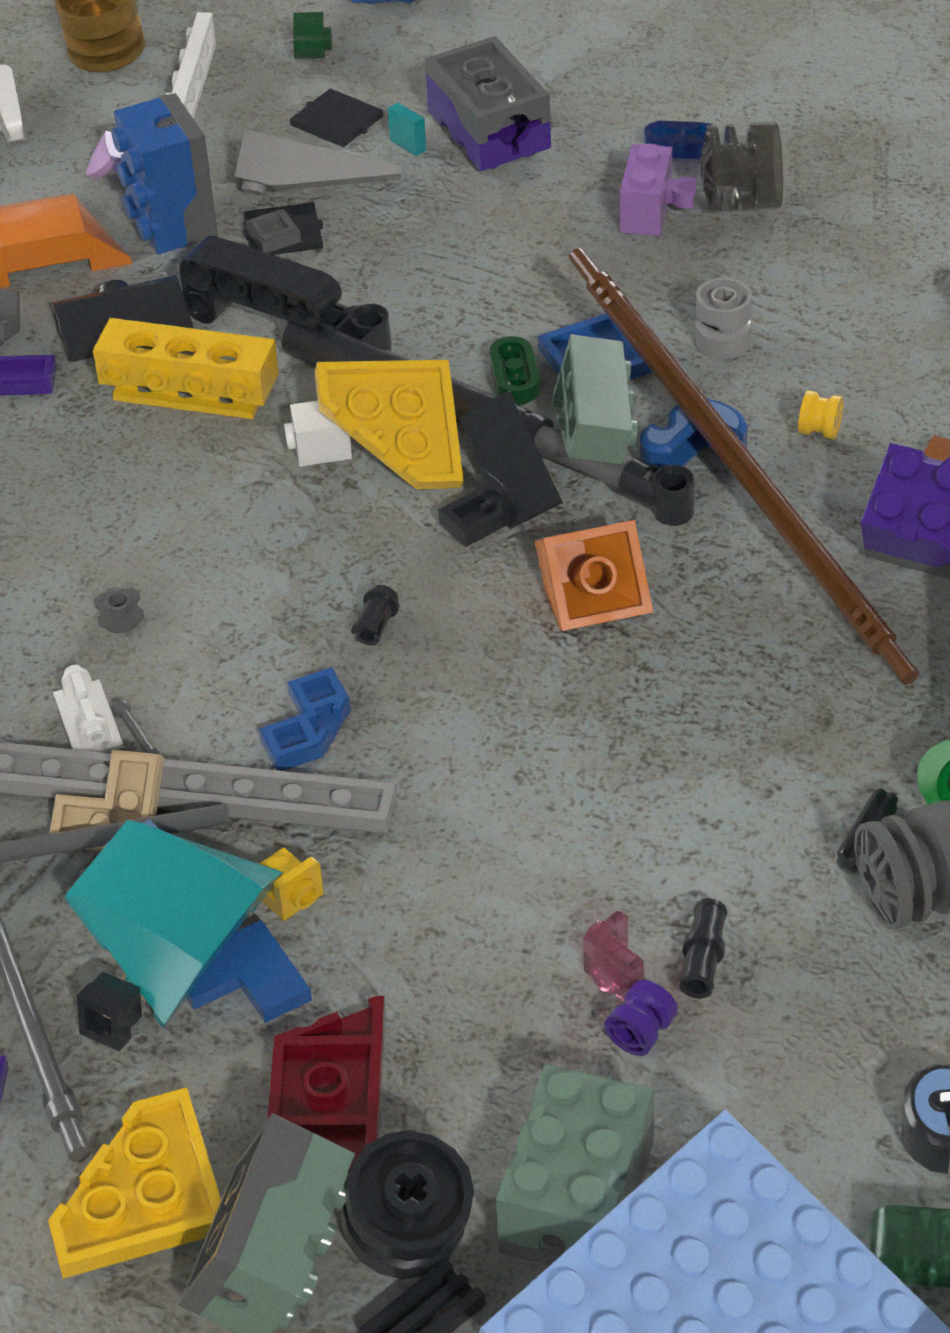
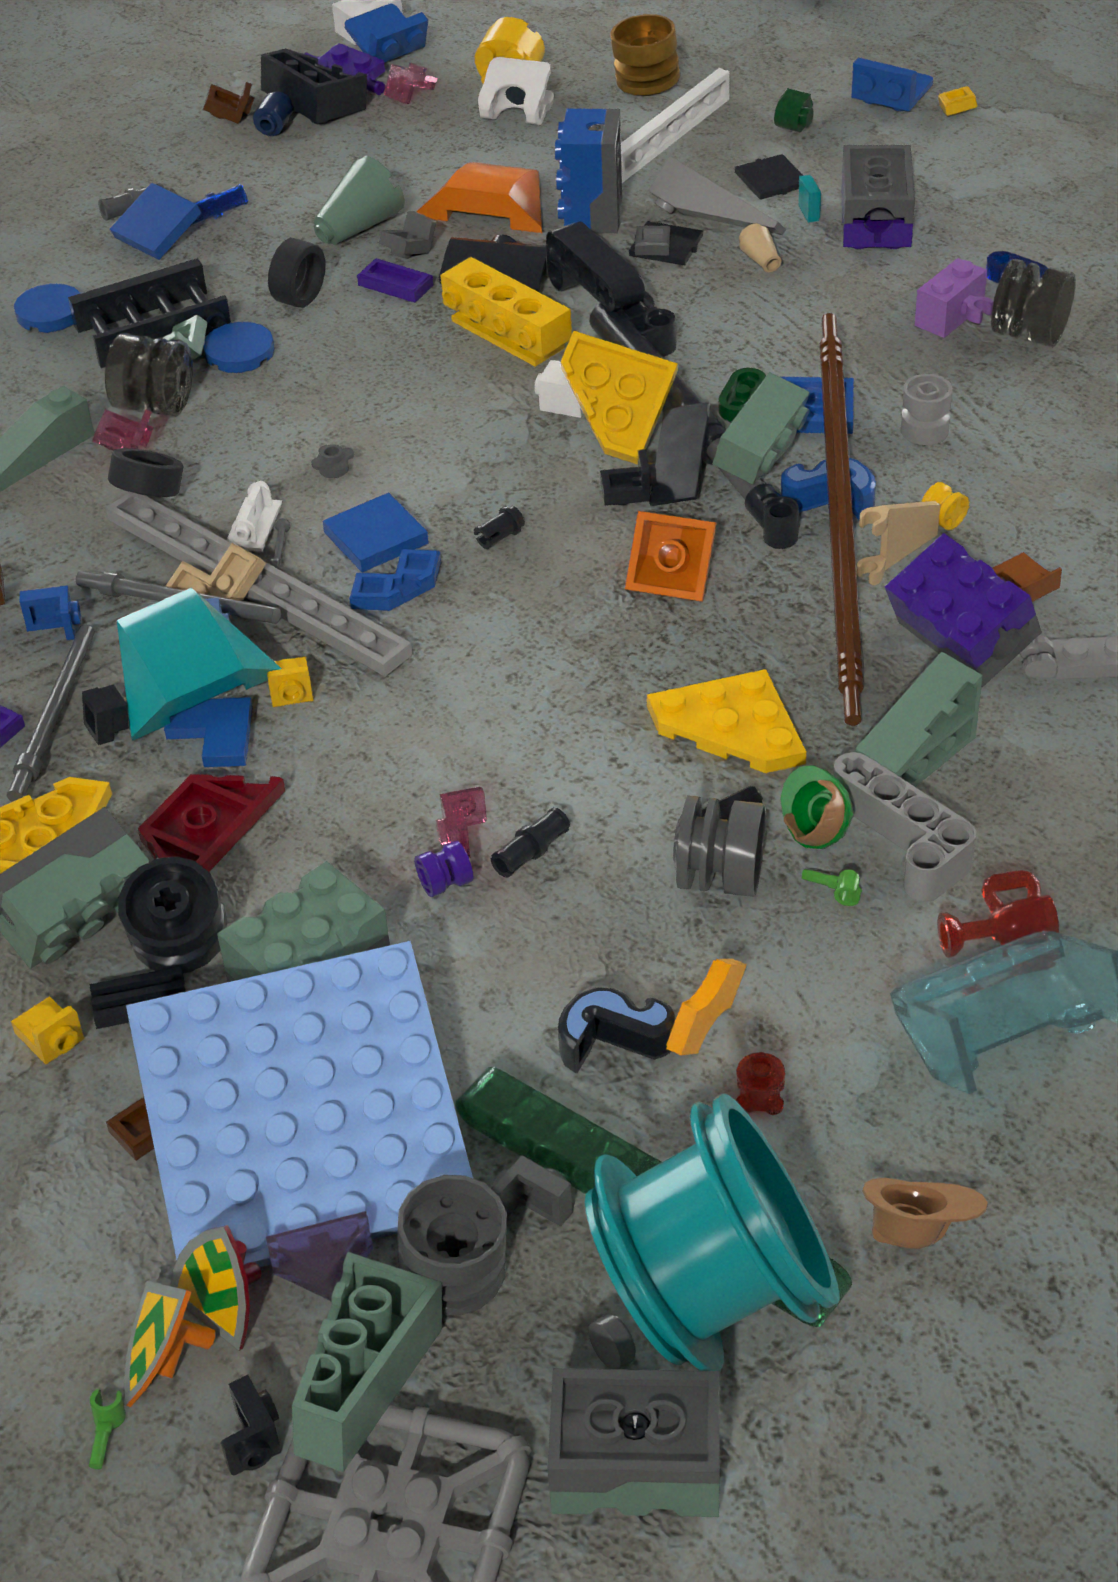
camera: 30 degrees right, 0 degrees up
(236, 674) = (375, 532): none -> blue tile
(397, 200) = (759, 246): none -> tan cone
(792, 725) = (733, 718): none -> yellow plate
(810, 451) = (901, 530): none -> tan flag

